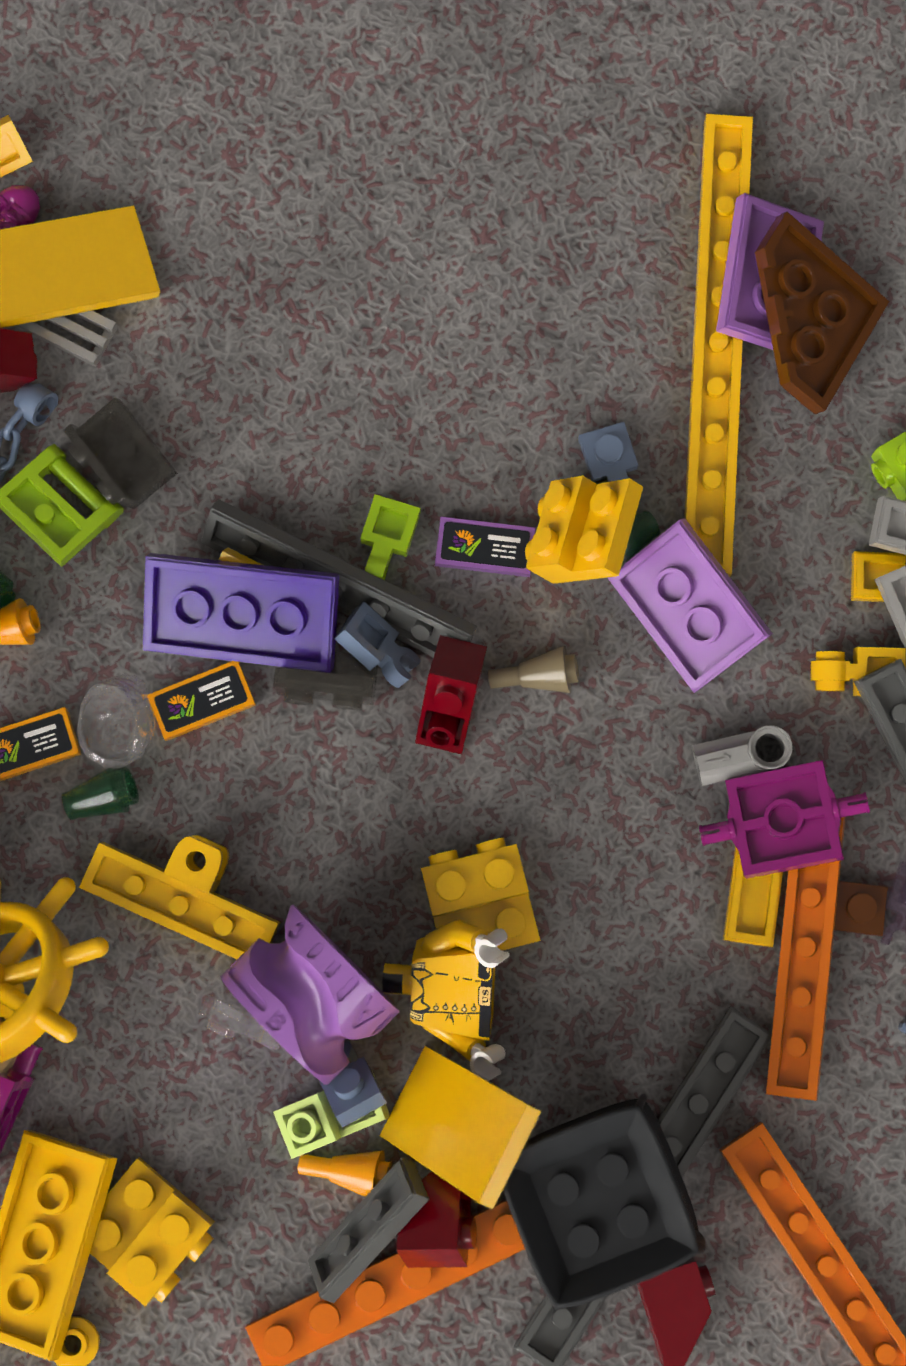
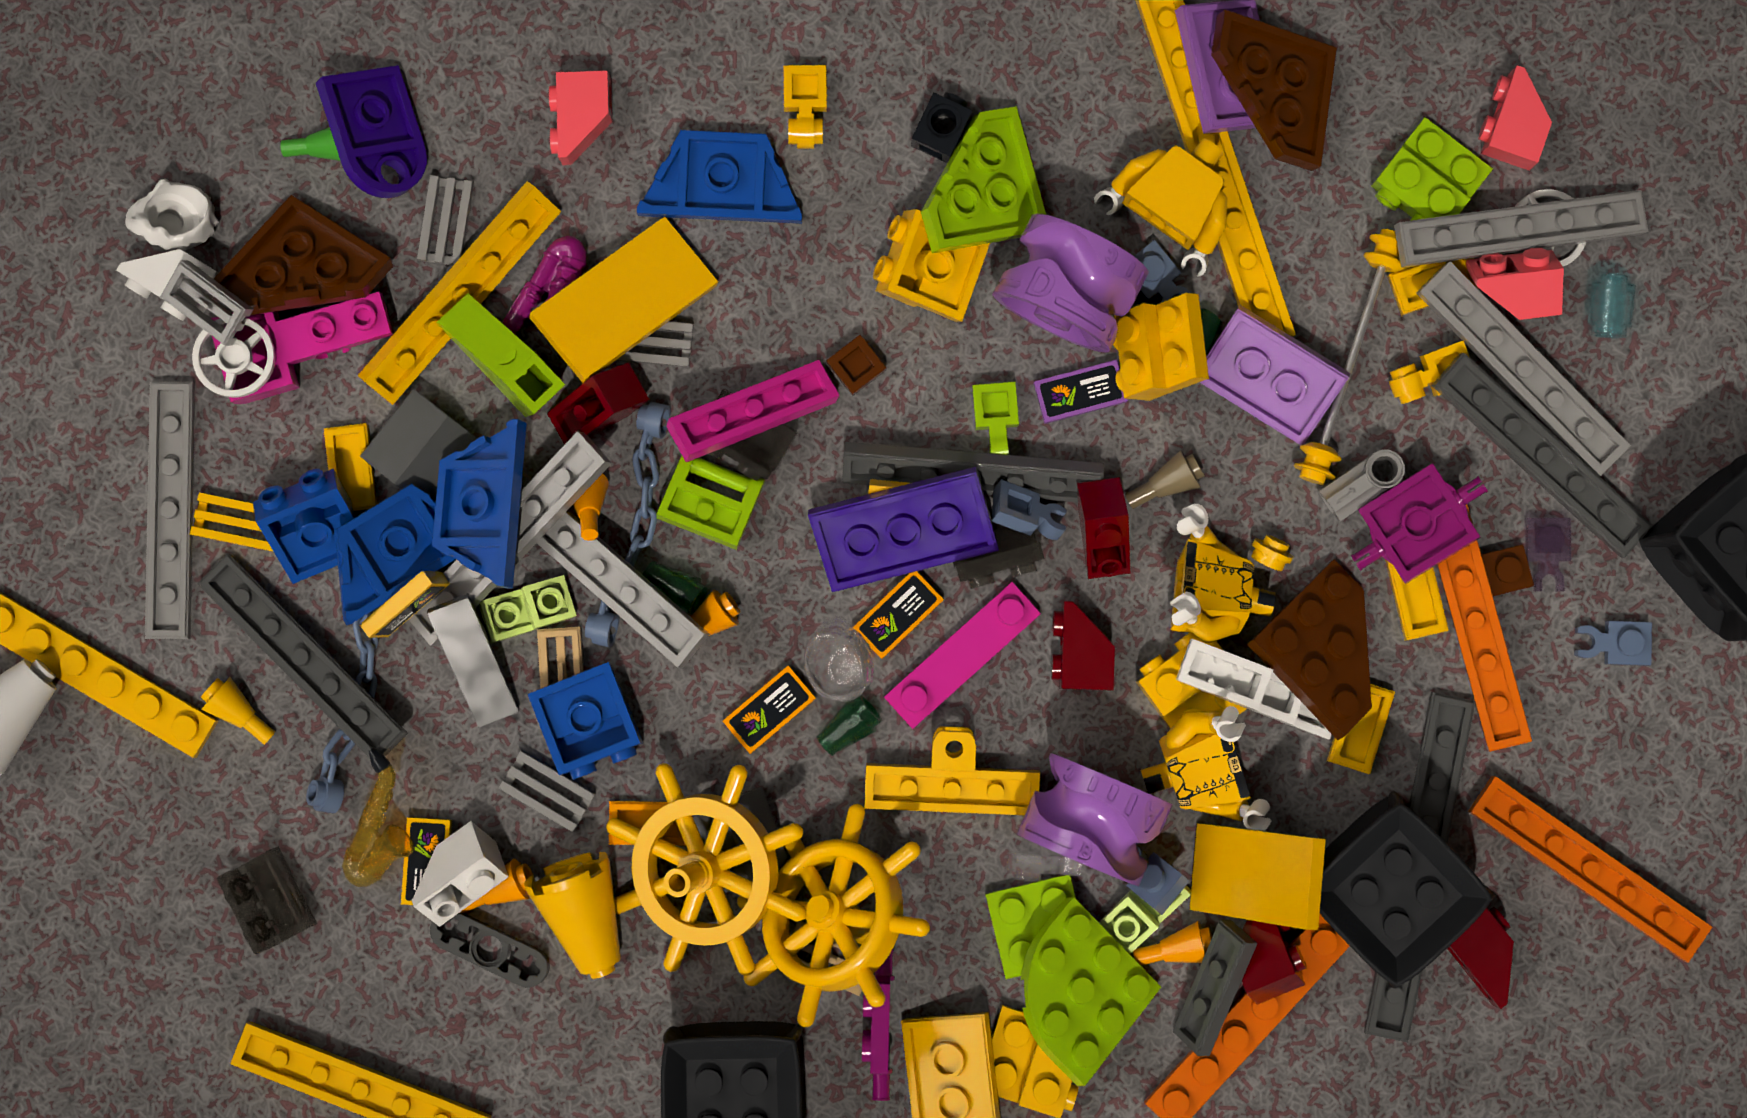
camera: 15 degrees left, 5 degrees up
(93, 70) = (582, 111): none -> coral slope
(133, 428) = (752, 410): none -> dark pink plate
(205, 191) = (721, 180): none -> blue wing
(210, 1088) = (1020, 914): none -> lime plate
(223, 1176) = (1081, 991): none -> lime plate
(249, 769) = (962, 655): none -> dark pink plate
(264, 428) = (856, 365): none -> reddish brown plate
(325, 139) = (805, 93): none -> yellow plate
(377, 817) = (1085, 652): none -> dark red slope
(383, 356) = (927, 279): none -> yellow plate
(447, 243) = (936, 144): none -> black brick
(470, 300) = (985, 187): none -> lime plate
(516, 423) = (1071, 283): none -> medium lavender piece
(539, 797) = (1213, 584): none -> yellow torso
(545, 927) = (1245, 685): none -> white slope
(617, 790) = (1271, 552): none -> yellow plate
(628, 912) = (1322, 649): none -> reddish brown plate
(640, 1012) = (1360, 745): none -> yellow tile
(662, 382) = (1176, 196): none -> yellow torso
(708, 708) = (1320, 455): none -> yellow axle

